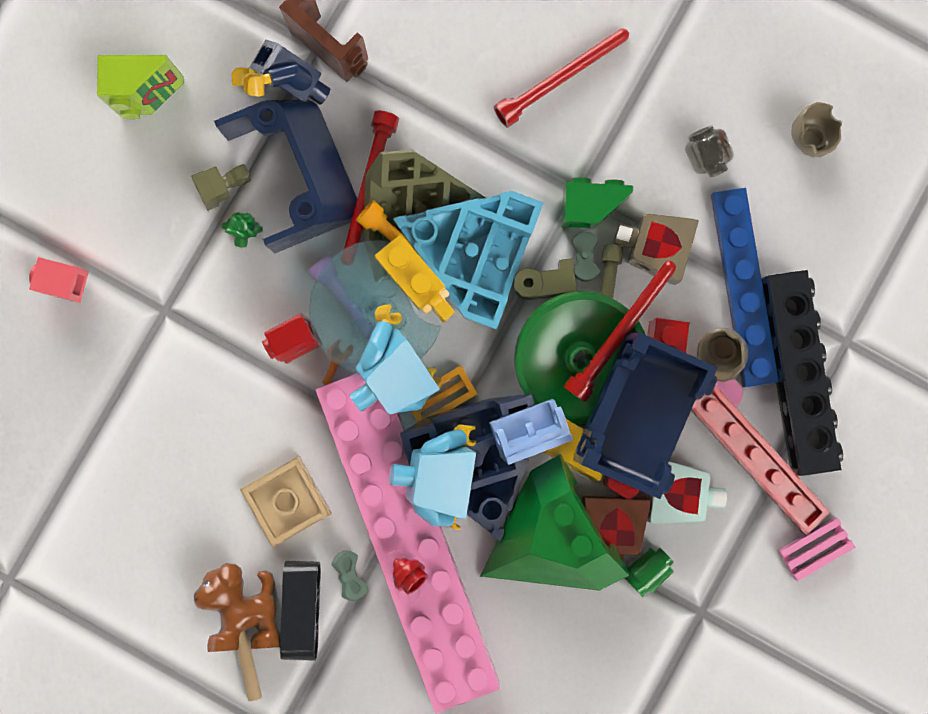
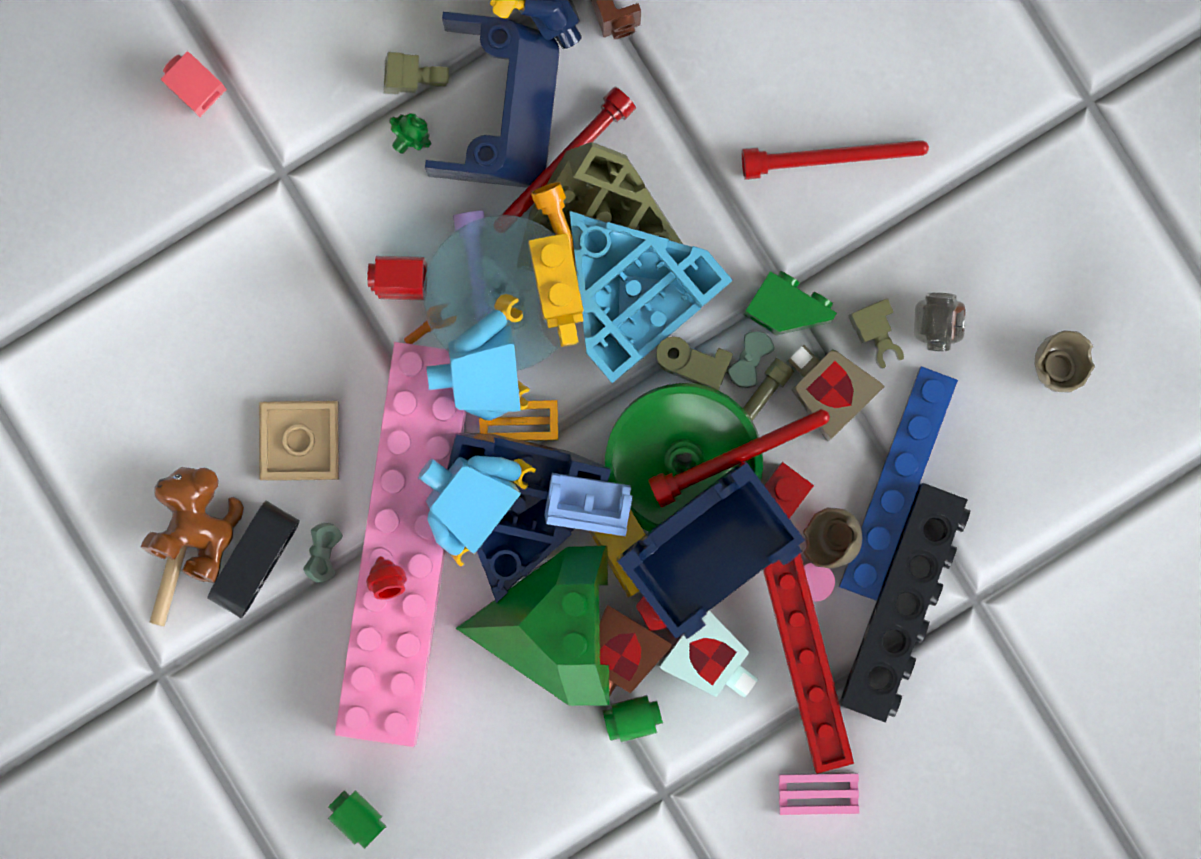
camera: 30 degrees right, 0 degrees up
(663, 180) = (873, 324): none -> olive piece

